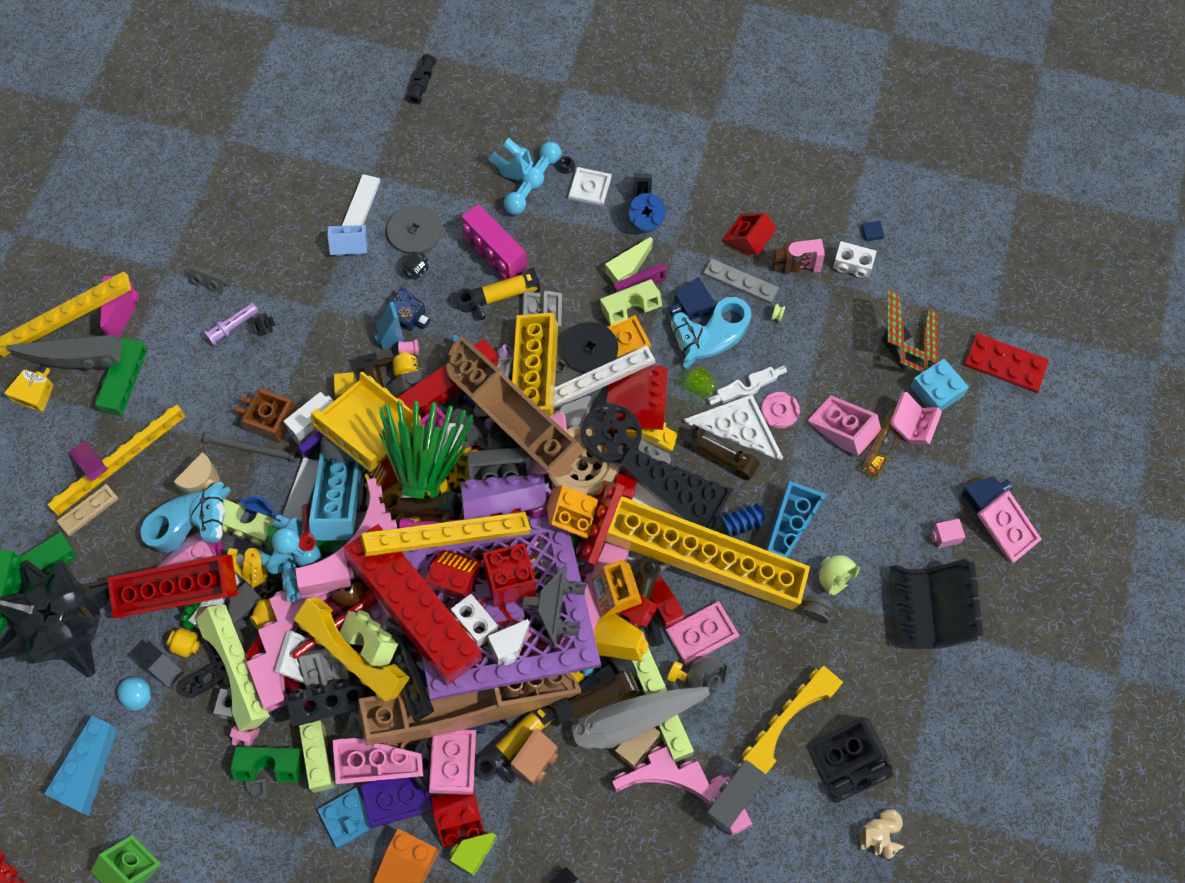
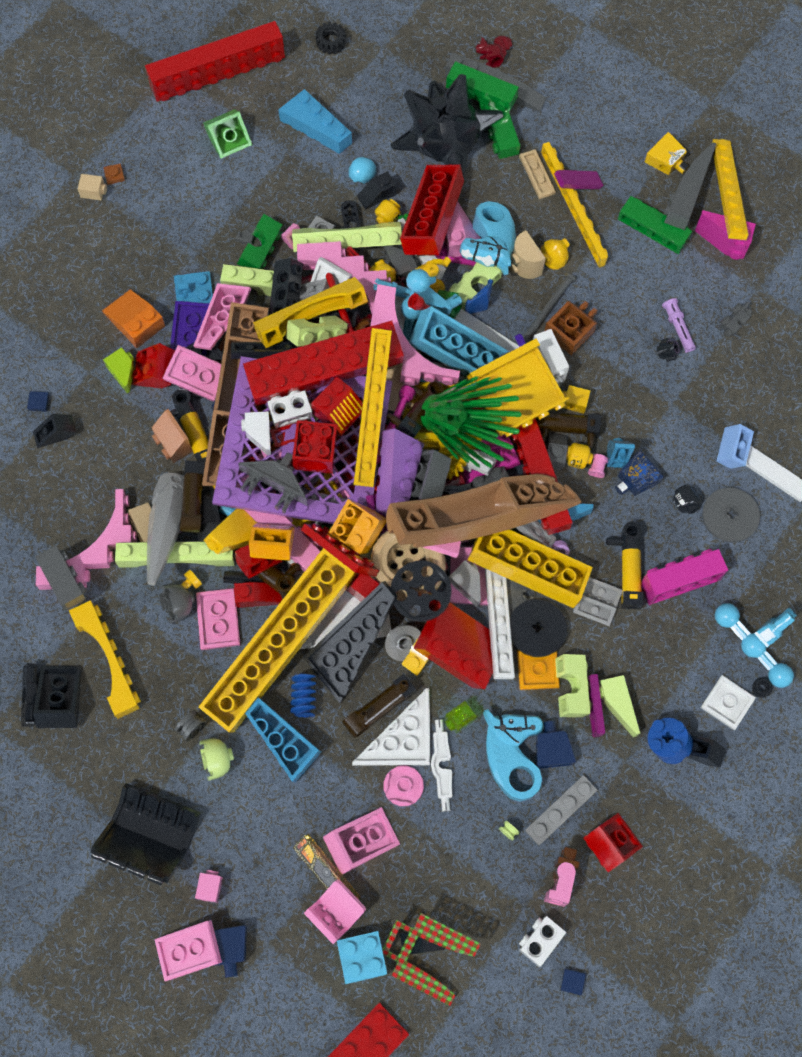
camera: 110 degrees right, 5 degrees up
(181, 457) = (555, 253): none -> yellow helmet

